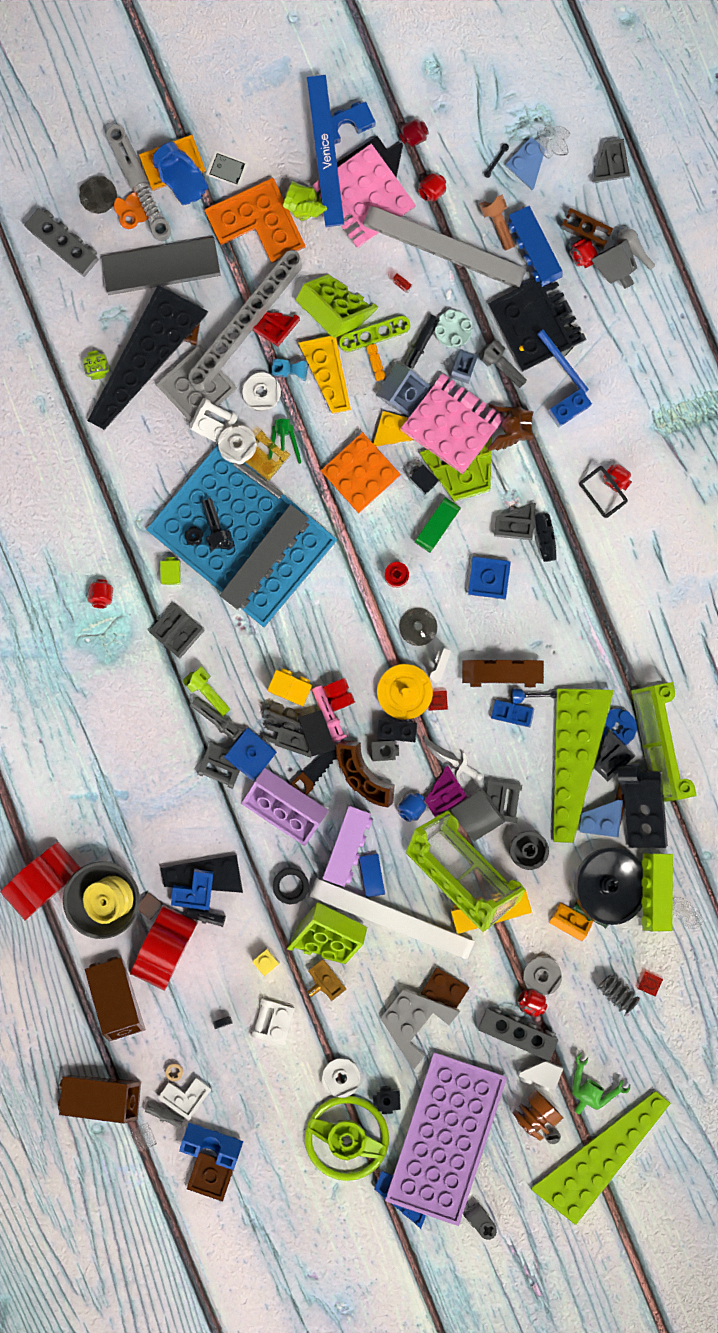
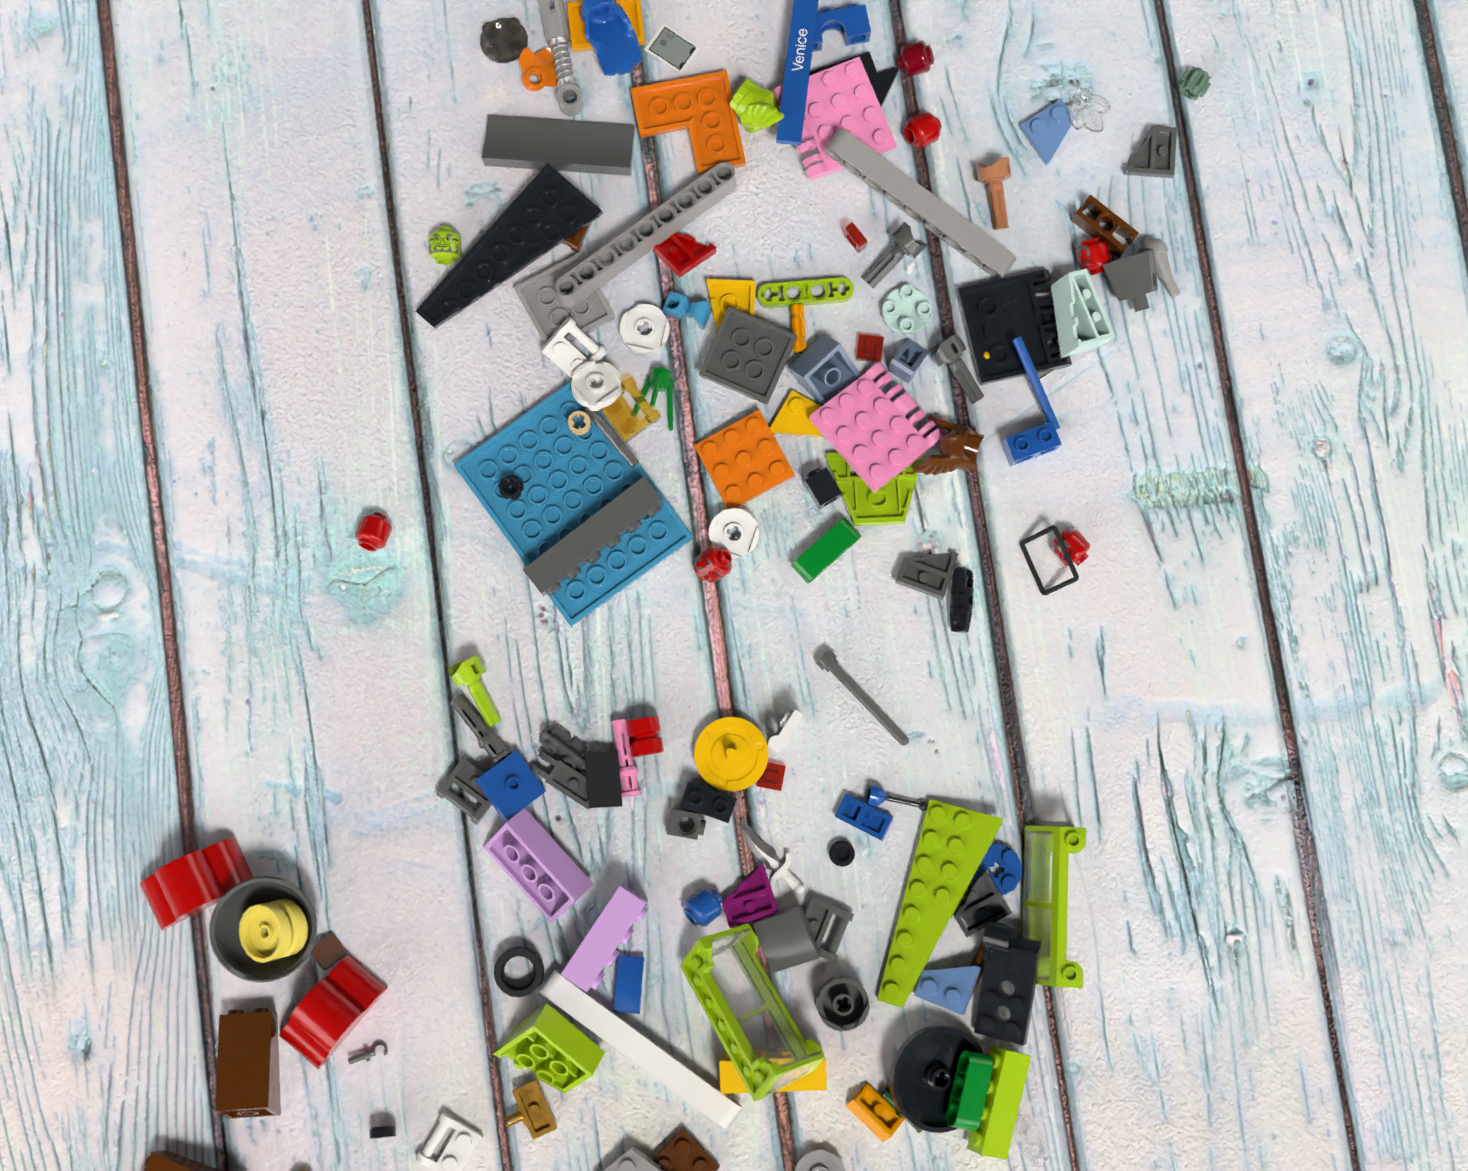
camera: 10 degrees right, 5 degrees down
(81, 264) = (424, 52): dark grey brick -> none
(170, 571) = (470, 526): lime brick -> none
(176, 631) = (458, 603): dark grey slope -> none
(196, 896) = (391, 954): blue plate -> none
(196, 971) = (367, 1054): none -> dark grey hand
(218, 539) = (541, 497): black piece -> none
(218, 920) = (410, 991): black pin -> none
(225, 875) = (419, 930): black wing -> none
(226, 478) = (587, 422): none -> tan bush
(265, 962) = (460, 1065): light yellow brick -> none
(290, 688) = (582, 711): yellow brick -> none
(315, 771) = (589, 828): black piece -> none
(334, 305) = (762, 244): lime wedge -> none
(344, 394) = (748, 355): none -> dark grey plate
(356, 556) = (713, 564): none -> red head
(359, 520) = (746, 525): none -> white plate
(360, 777) = (645, 849): reddish brown brick -> none
(396, 574) = (758, 600): red wheel -> none
(414, 636) = (769, 688): clear smoke dish -> none
(421, 342) = (862, 316): black axle -> none
(433, 364) = (869, 348): none -> clear red tile
(440, 280) = (903, 246): none -> dark grey piece
(460, 607) = (829, 663): none -> dark grey piece
(489, 578) = (876, 634): blue plate -> none
(502, 743) = (841, 853): none -> black tile
(503, 671) = (864, 759): reddish brown brick -> none
(505, 147) = (1024, 106): black hinge -> none
(535, 245) = (1034, 232): blue brick -> none
(582, 301) = (1079, 314): none -> light aqua wedge
(629, 100) = (1194, 83): none -> sand green gear
(634, 889) = (969, 1090): none -> green beam

